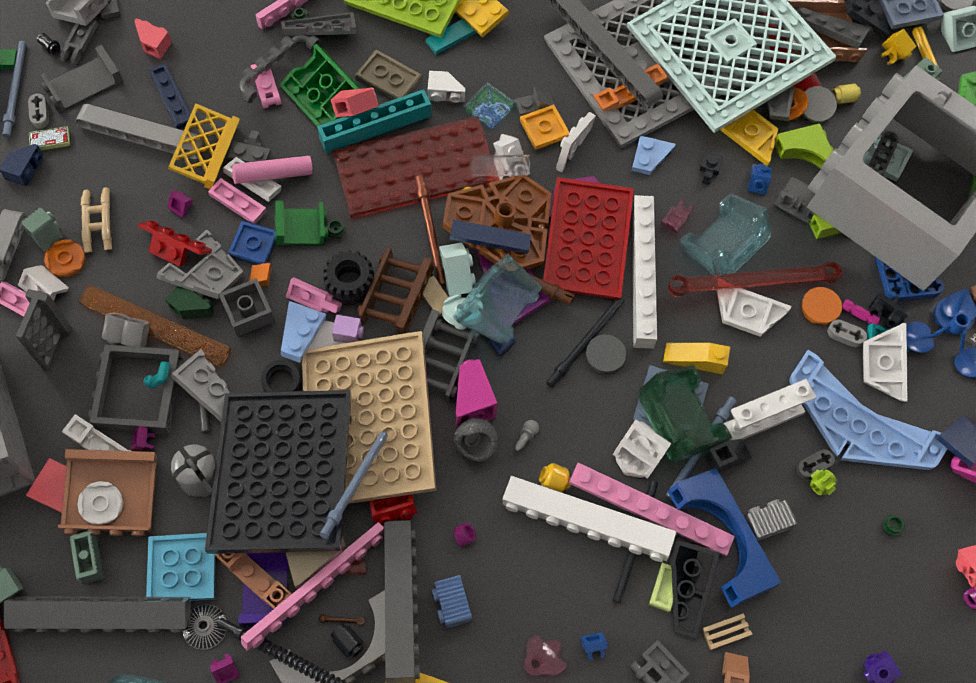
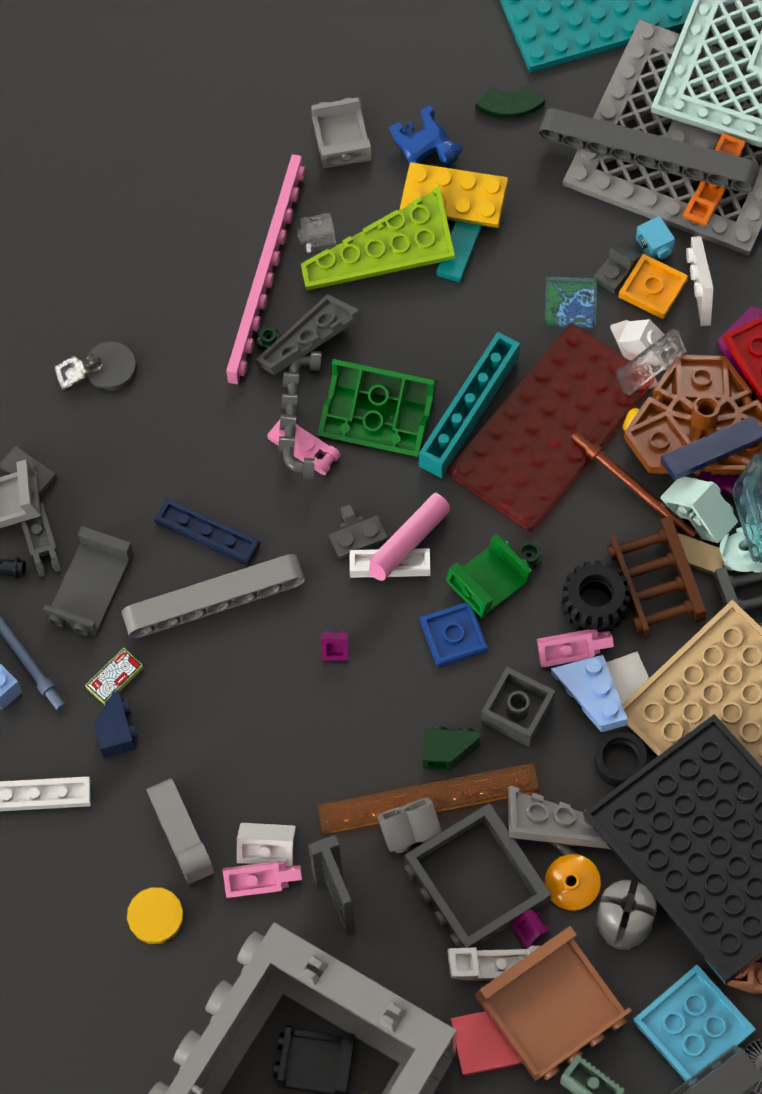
camera: 30 degrees left, 0 degrees up
(41, 110) = (74, 648): light grey beam -> none
(43, 228) = (216, 780): sand green brick -> none
(65, 258) = (260, 797): orange tile -> none
(100, 503) = (556, 1021): white tile -> none
(104, 208) = (257, 744): tan piece -> none
(153, 39) = (124, 479): coral slope -> none
(158, 379) = (500, 845): teal arm -> none
(171, 245) = (370, 698): red bracket -> none
(197, 434) = (585, 889): none -> light orange dish
(210, 276) = (446, 696): light grey wing -> none
(217, 155) = (328, 559): yellow fence -> none
(237, 201) = (395, 599): bright pink plate -> none
(262, 273) = (493, 661): orange slope -> none
(347, 329) = (642, 655): lavender brick -> none
(354, 101) = (437, 397): coral slope -> none
(388, 76) = (431, 343): dark tan tile -> none
(444, 87) = (508, 313): white slope -> none
(569, 101) = (655, 239): none -> medium azure brick

